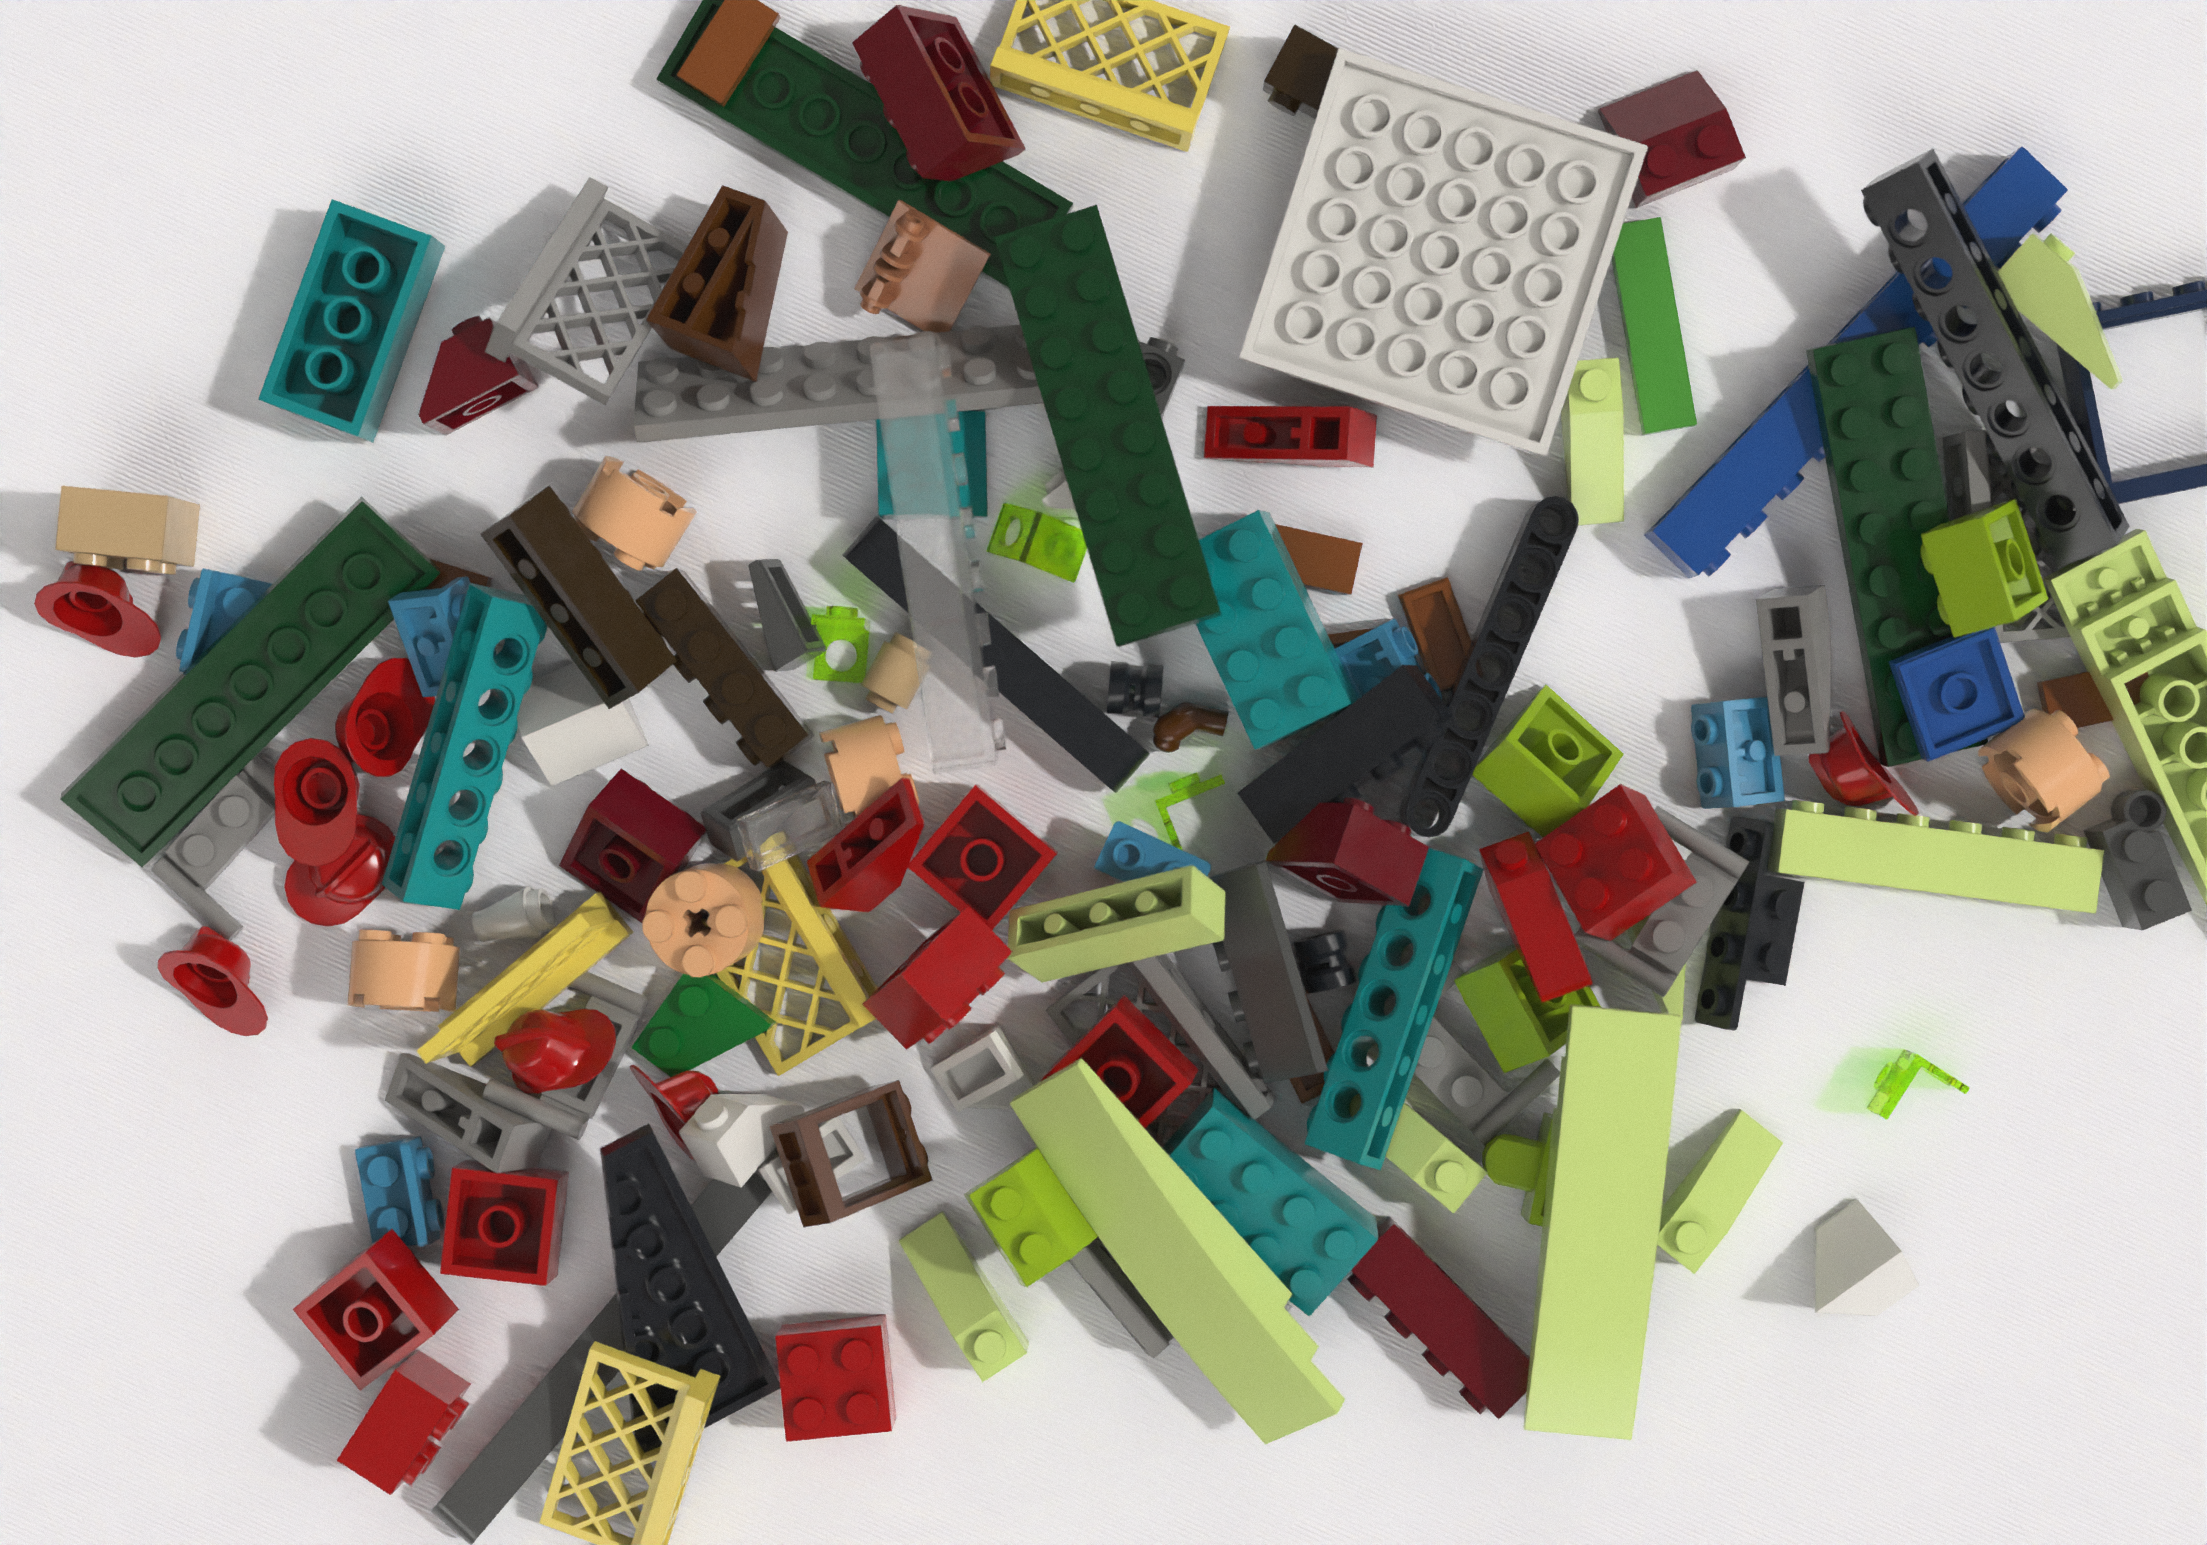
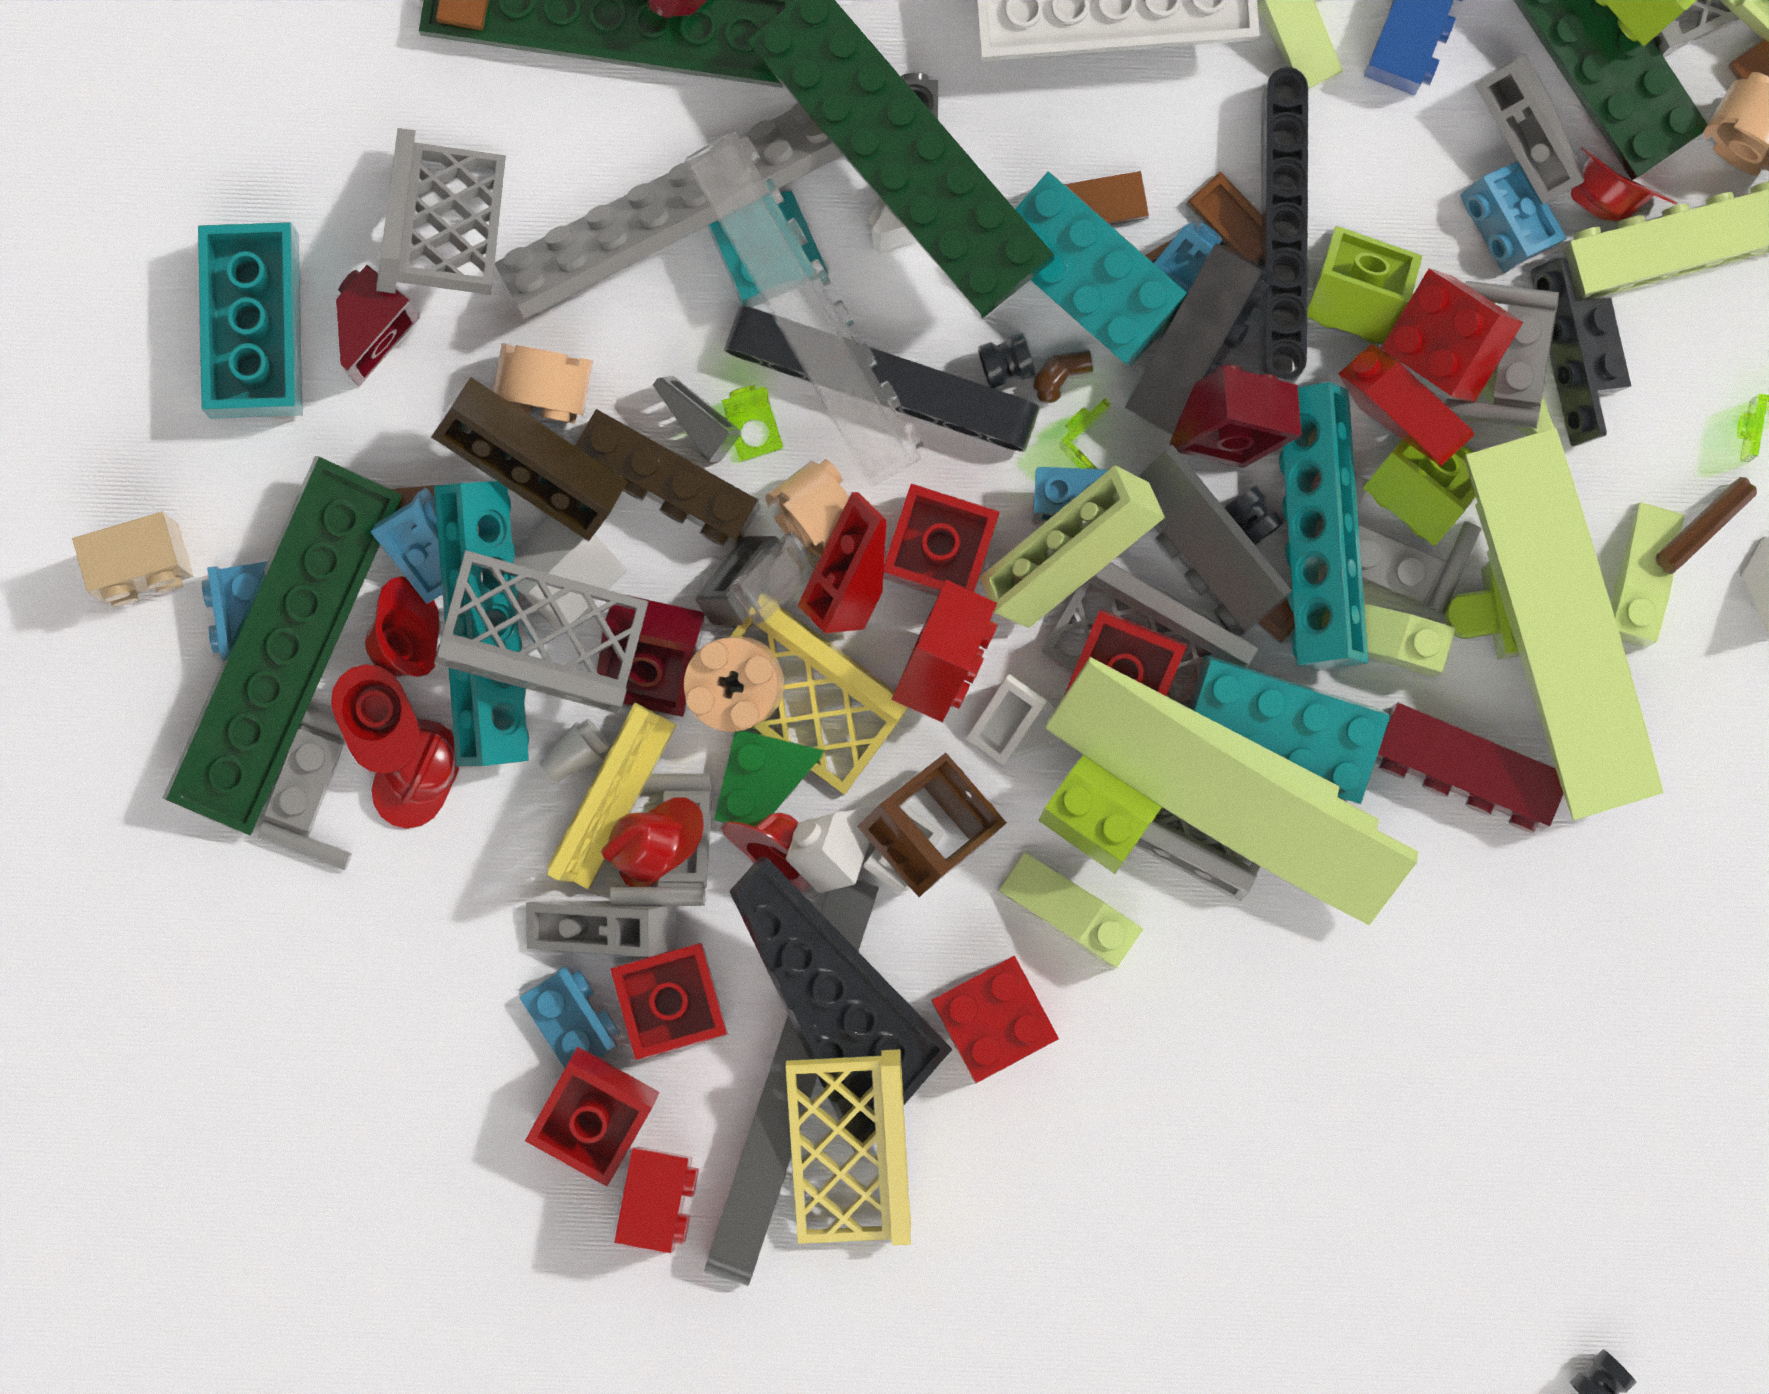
camera: 25 degrees left, 5 degrees down
(99, 609) = (133, 640): red piece -> none
(216, 980) = (350, 906): red piece -> none
(403, 973) = (503, 829): light nougat brick -> none
(487, 826) = (533, 672): none -> light grey fence
(724, 285) = (543, 169): reddish brown wedge -> none
(893, 675) = (806, 427): tan brick -> none
(920, 271) = (694, 96): nougat hinge -> none
(1040, 543) = (882, 274): clear neon green bracket -> none
(1291, 435) = (1048, 107): red slope -> none
(1800, 1168) = (1706, 525): none -> reddish brown axle
(1957, 692) = (1666, 92): blue tile -> none

